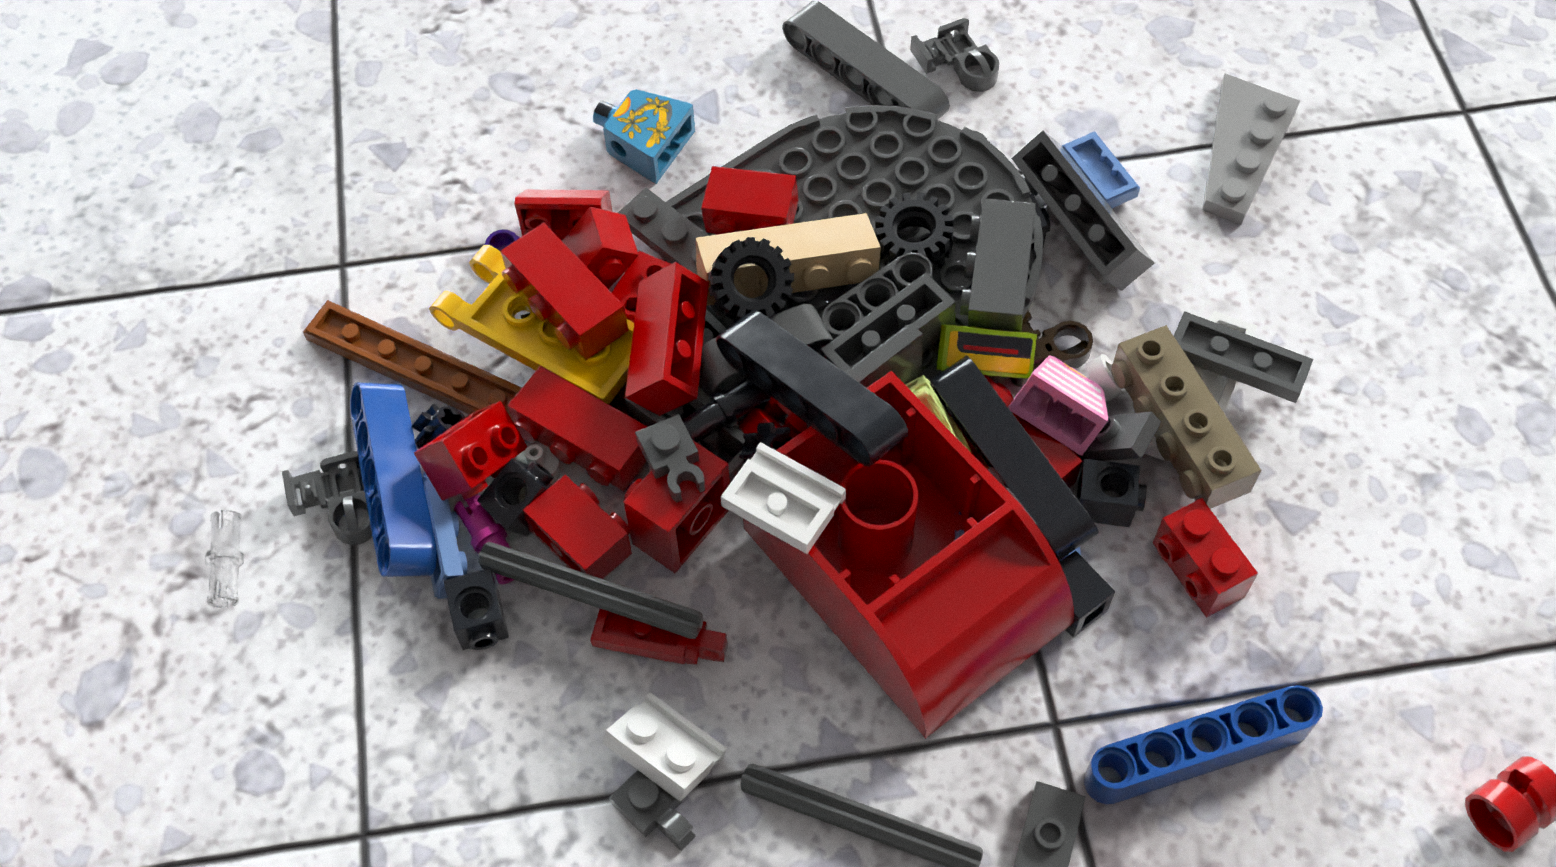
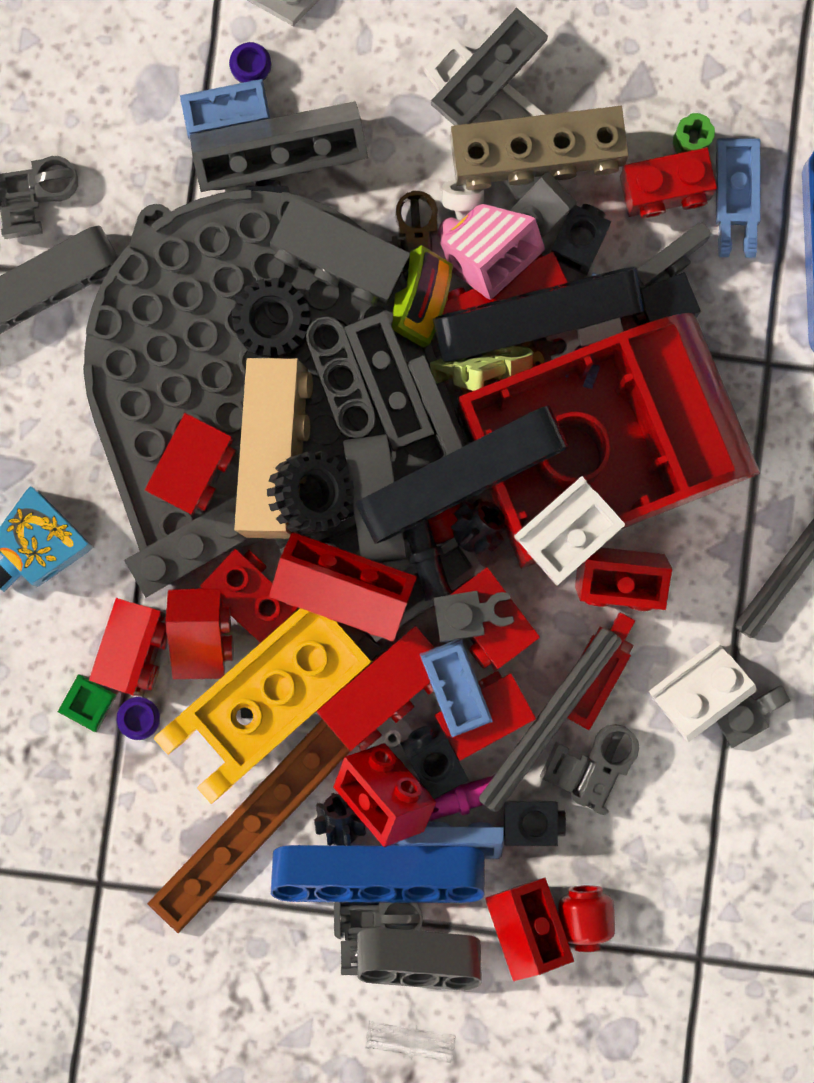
camera: 75 degrees left, 25 degrees up
(308, 534) = (419, 959): none -> dark grey beam
(359, 632) = (529, 929): none -> red brick
(383, 690) = (587, 917): none -> red head
(502, 212) = (87, 703): none -> green tile
(544, 650) = (587, 776): none -> dark grey piece
(563, 292) = (251, 672): red brick -> none
(596, 478) = (456, 687): none -> medium blue plate
(763, 622) = (624, 579): none -> red brick
(1132, 586) = (675, 256): none -> dark grey plate
(1152, 178) = (250, 62): none -> dark purple plate
(1224, 635) = (737, 192): none -> medium blue hinge
(1270, 570) = (698, 123): none -> bright green bush

